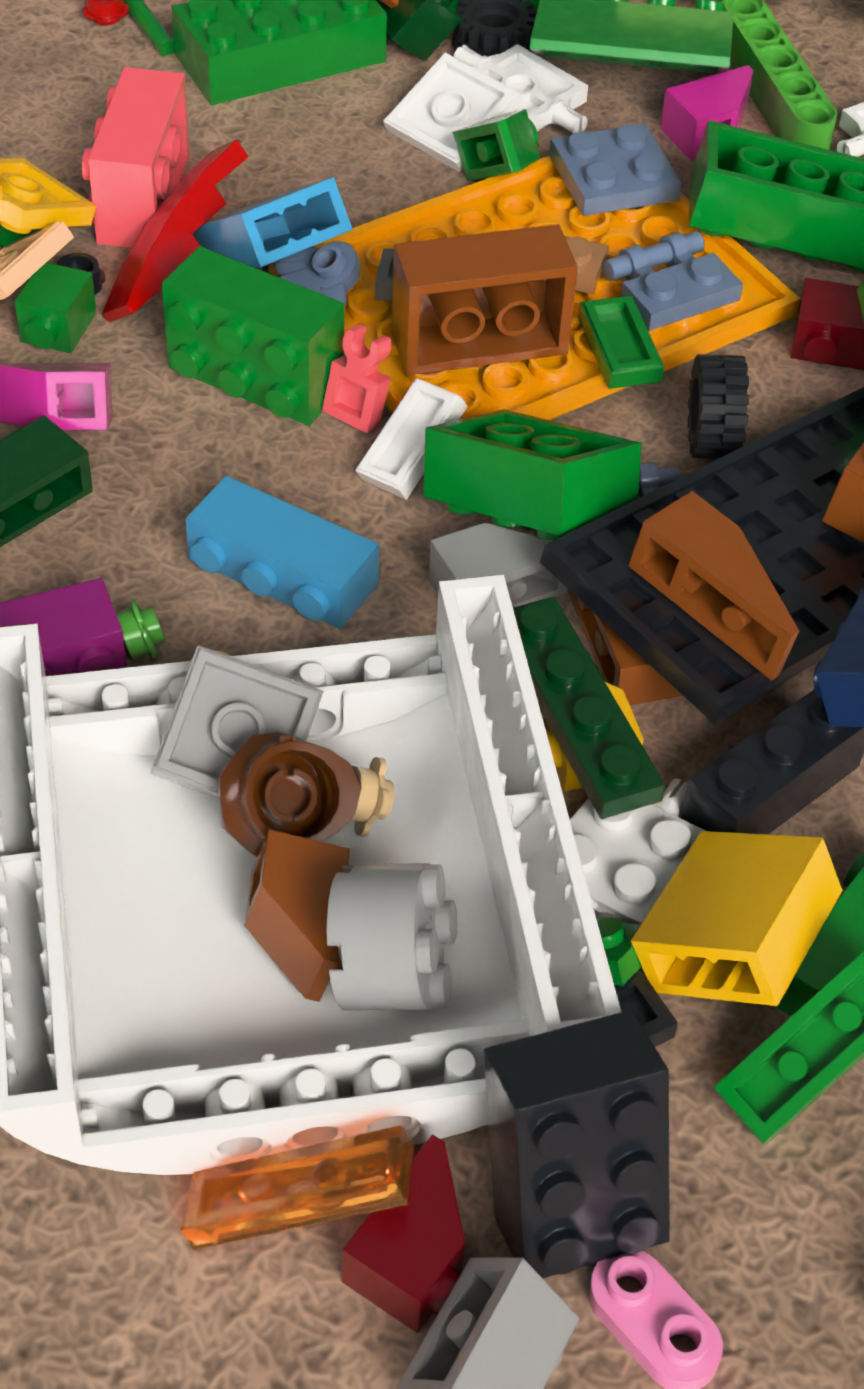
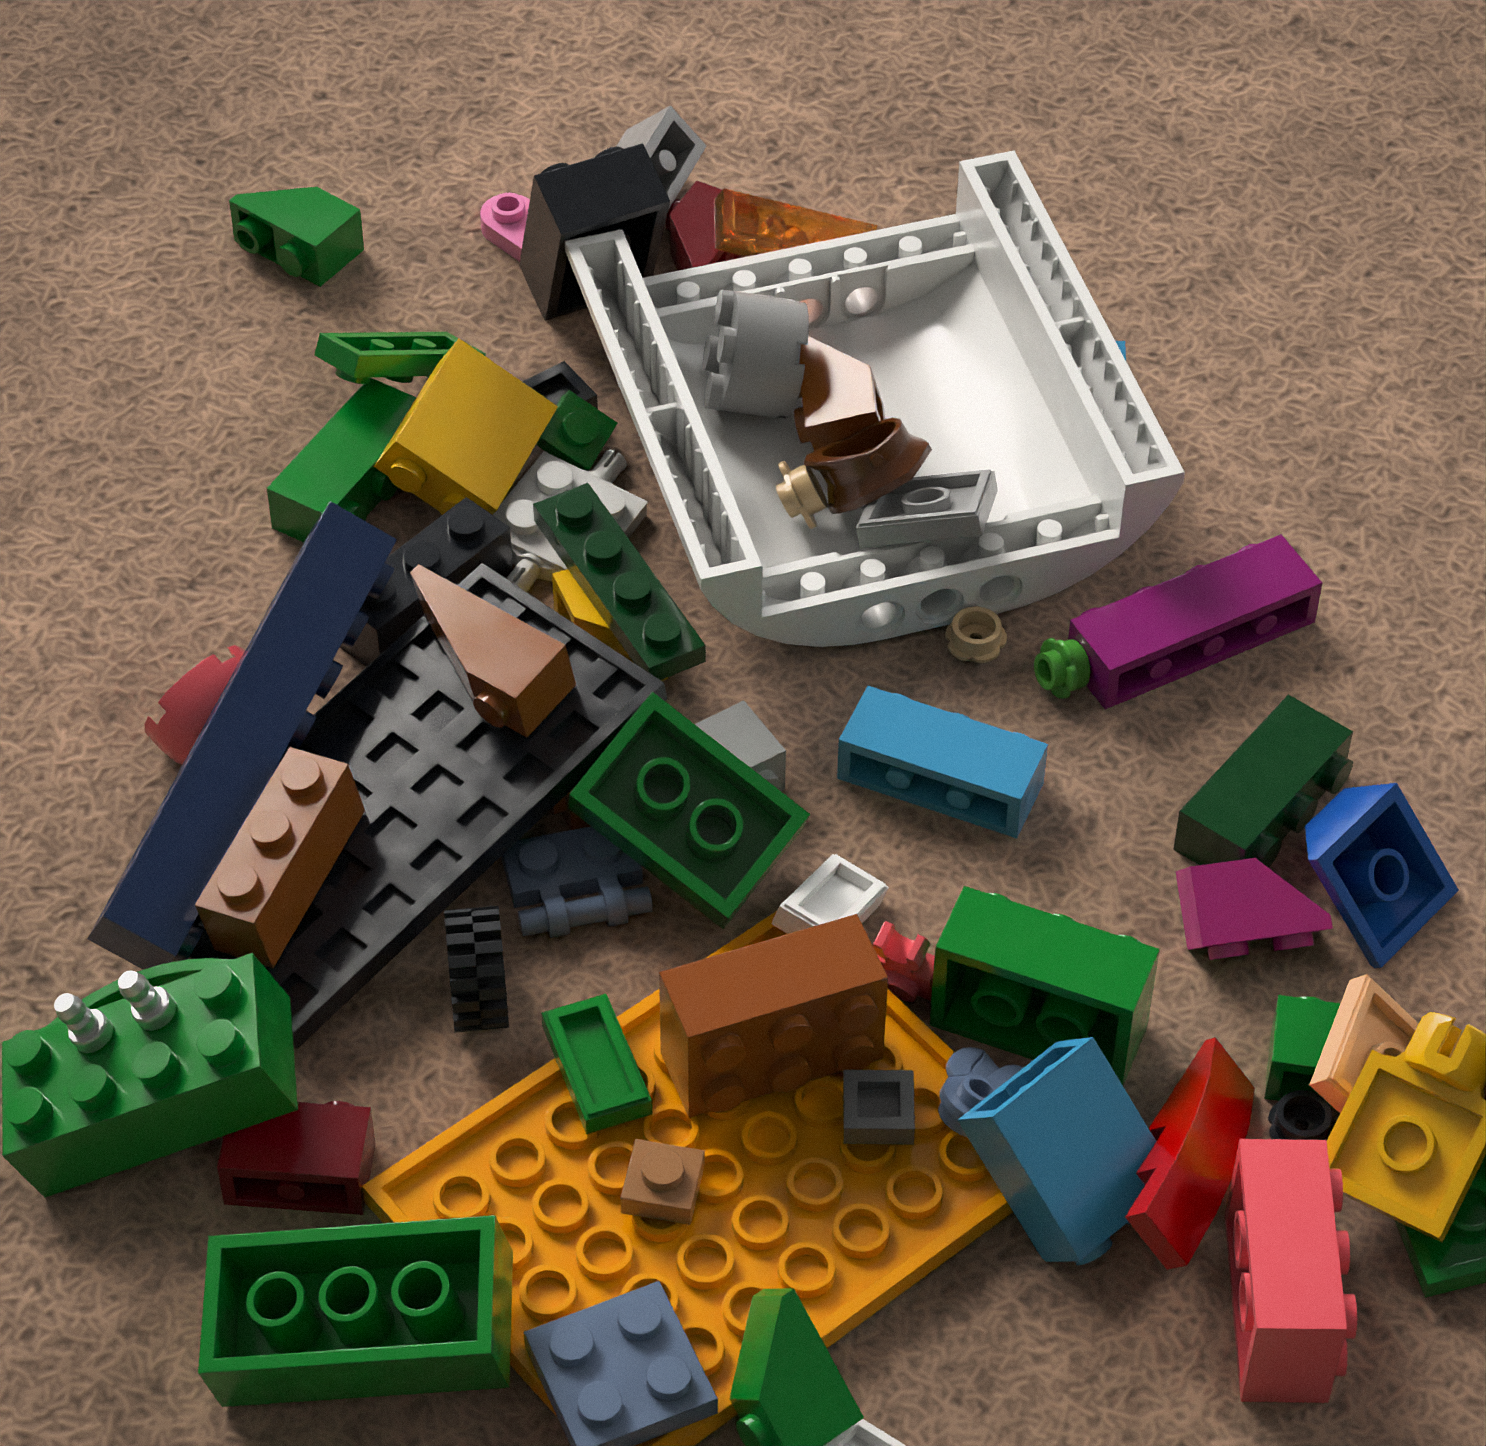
camera: 175 degrees right, 0 degrees up
(683, 288) = (526, 1152): sand blue plate -> none

